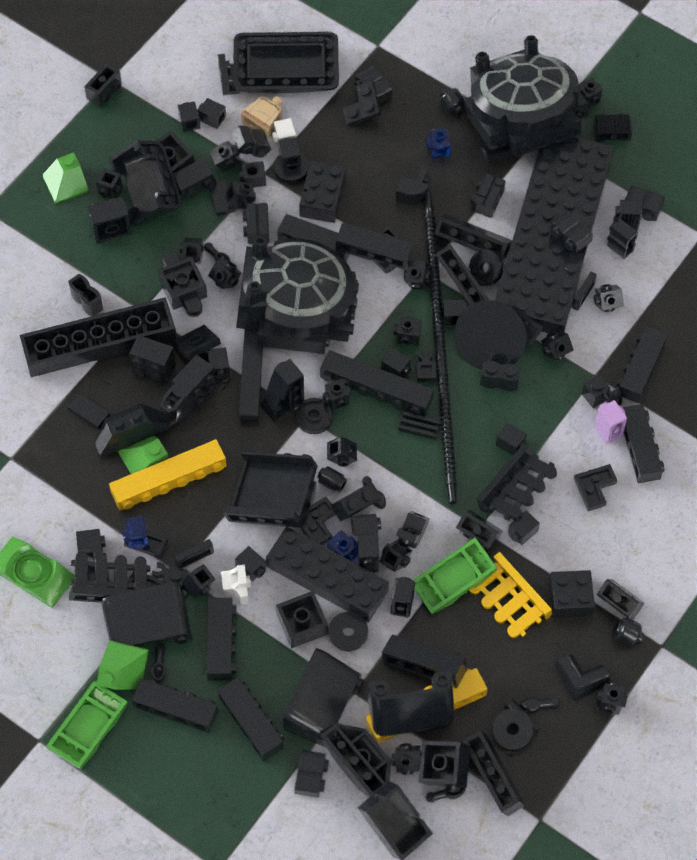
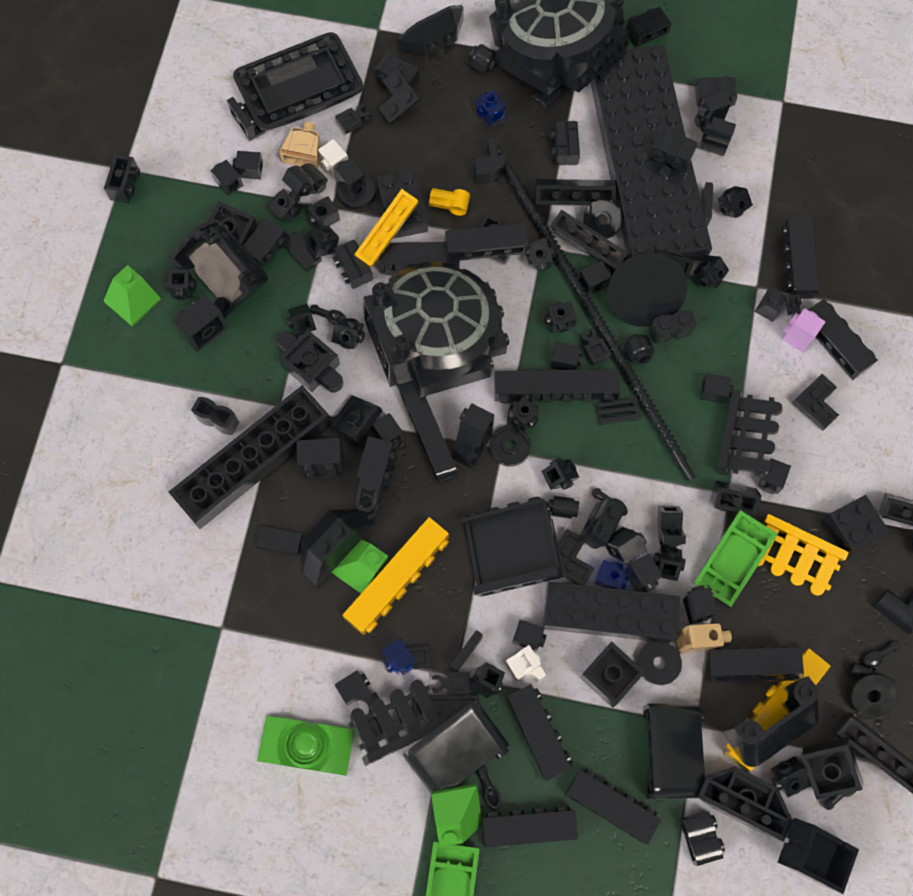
camera: 25 degrees left, 10 degrees up
(296, 203) = (386, 228): none -> yellow plate
(315, 109) = (351, 120): none -> black plate
(367, 206) = (454, 201): none -> yellow piece
(391, 621) = (702, 638): none -> tan torso
(422, 63) = (432, 32): none -> black wedge
(462, 382) = (639, 349): none -> black head

